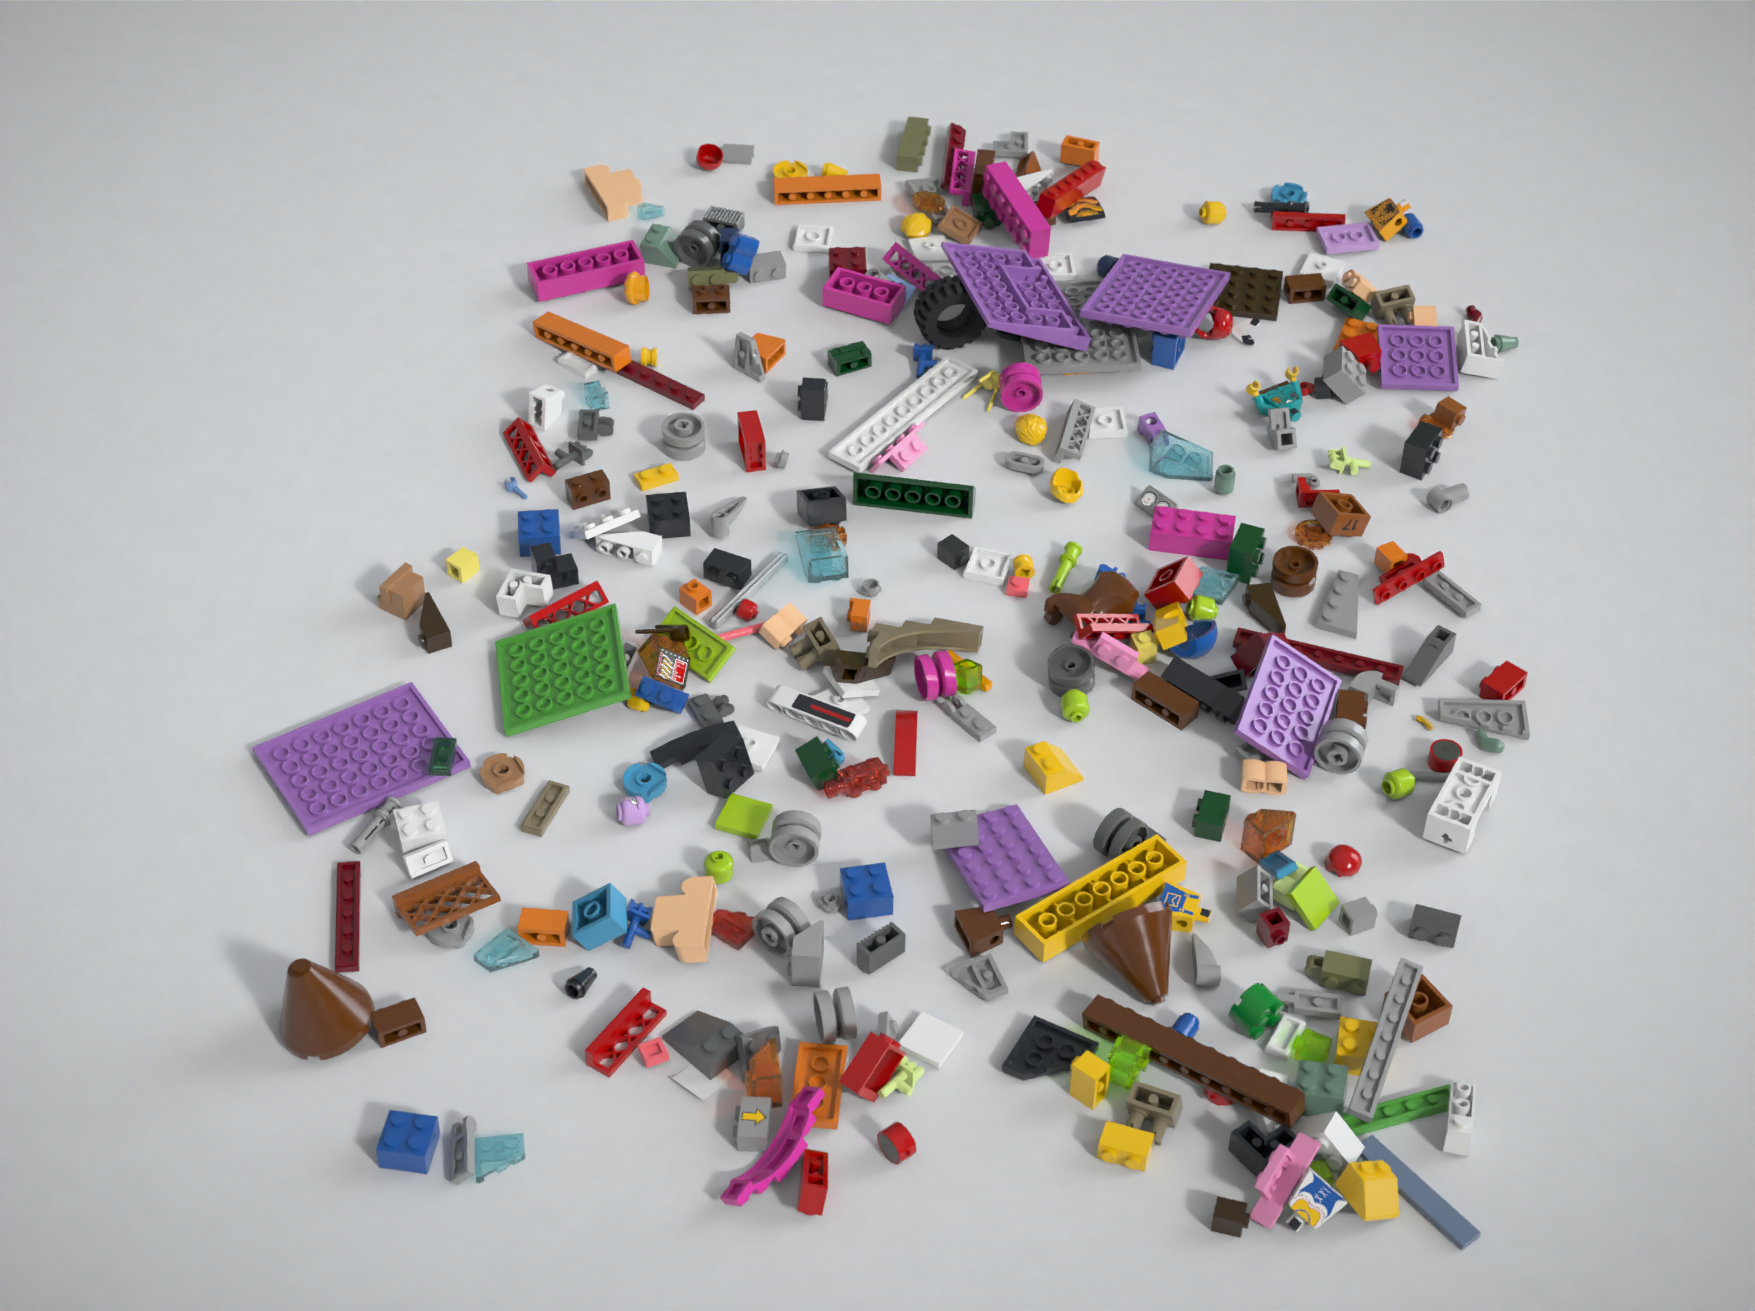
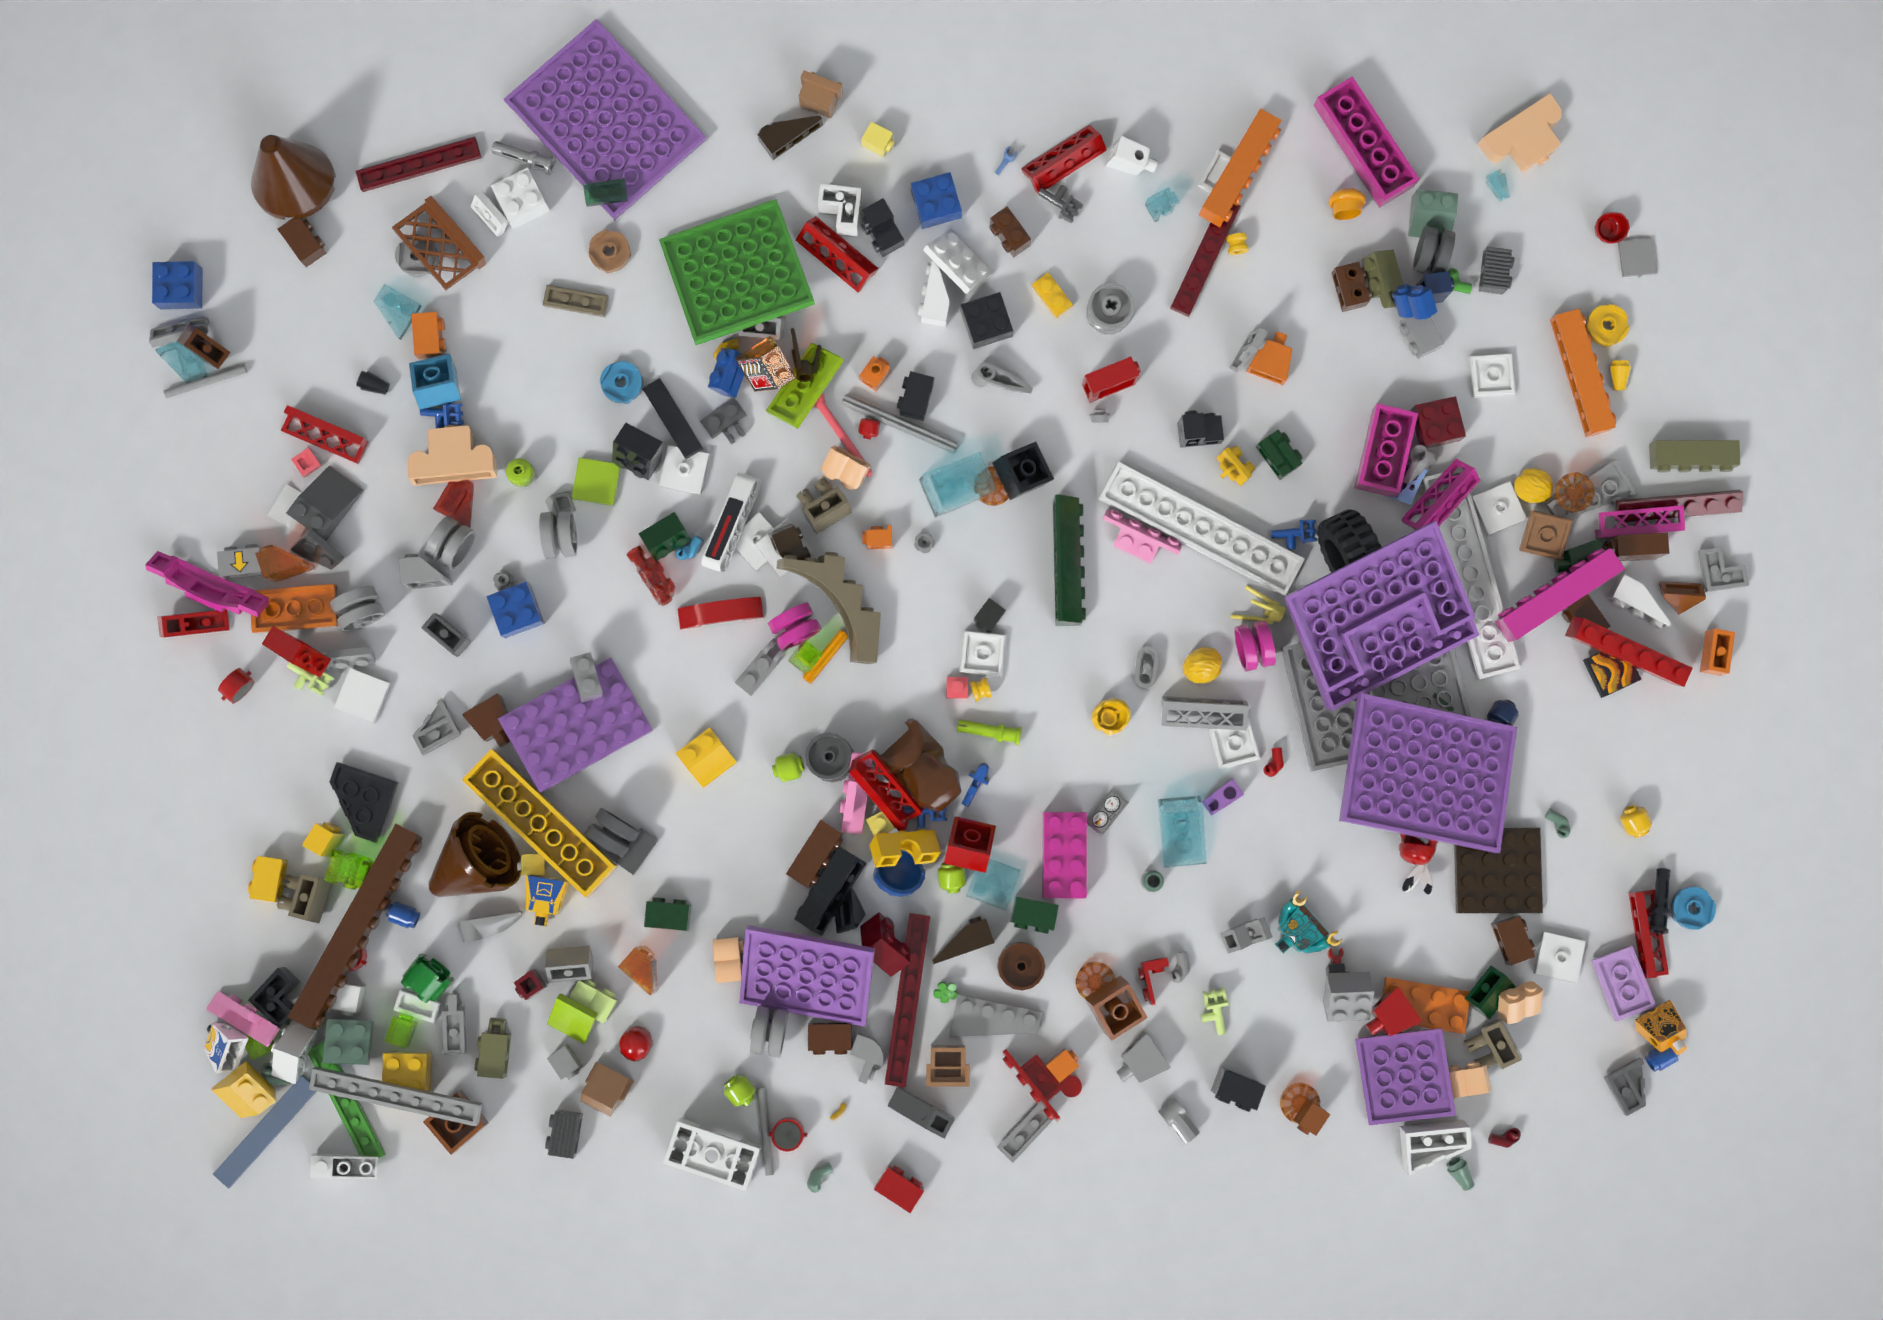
camera: 75 degrees right, 40 degrees up
(492, 1115) = (203, 346): none -> reddish brown brick
(529, 1138) = (205, 381): none -> light grey bar
(591, 425) = (1116, 208): dark grey hinge -> none
(632, 810) = (577, 380): lavender head -> none
(852, 385) = (1233, 466): none -> yellow hips
(1128, 399) = (1275, 764): none -> red arm
(1207, 253) = (1561, 823): none -> sand green arm
(1230, 1217) = (208, 975): dark brown brick -> none
(1278, 864) = (607, 983): dark azure tile -> none
(1312, 630) = (945, 992): none -> bright green plant
(1384, 632) = (948, 1067): none -> medium nougat plate
(1389, 510) = (1142, 1060): none -> light grey torso
(1390, 883) = (605, 1089): none -> medium nougat plate
(1435, 247) = (1628, 1086): none -> flat silver wing
(1495, 716) = (855, 1181): light grey wing -> none

